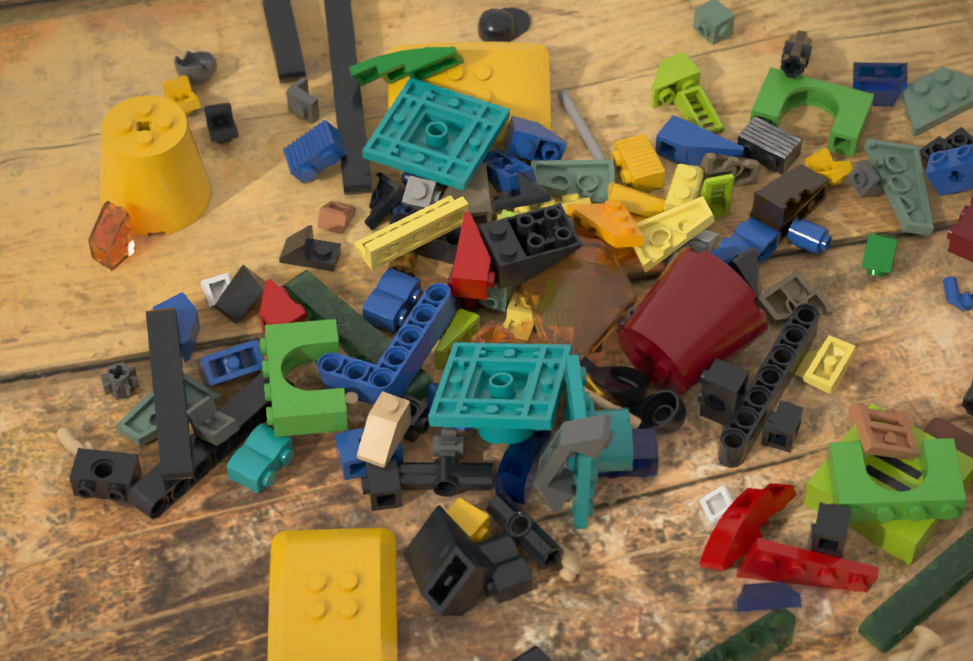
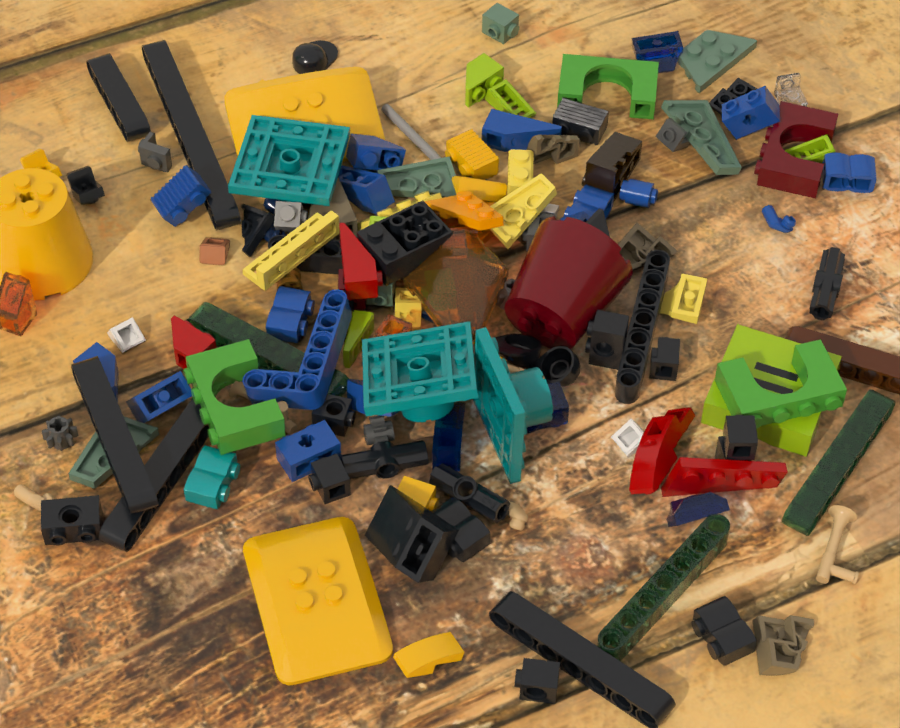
camera: 15 degrees left, 0 degrees up
(196, 66) = (49, 138): dark grey hair -> none
(210, 423) = (160, 454): dark grey bracket -> none
(240, 294) = (148, 335): black slope -> none
(305, 251) = (193, 285): black slope -> none
(384, 429) = (321, 428): tan slope -> none
(416, 63) = (255, 100): green slope -> none
(530, 194) = (386, 199): black slope -> none
(583, 436) = (515, 396): dark grey slope -> none
(718, 194) = (552, 168): lime slope -> none
(796, 54) = (582, 39): black piece -> none
(824, 165) = (644, 132): yellow bracket -> none
(879, 253) = (703, 196): green slope -> none
(884, 439) = (759, 345): nougat plate -> none

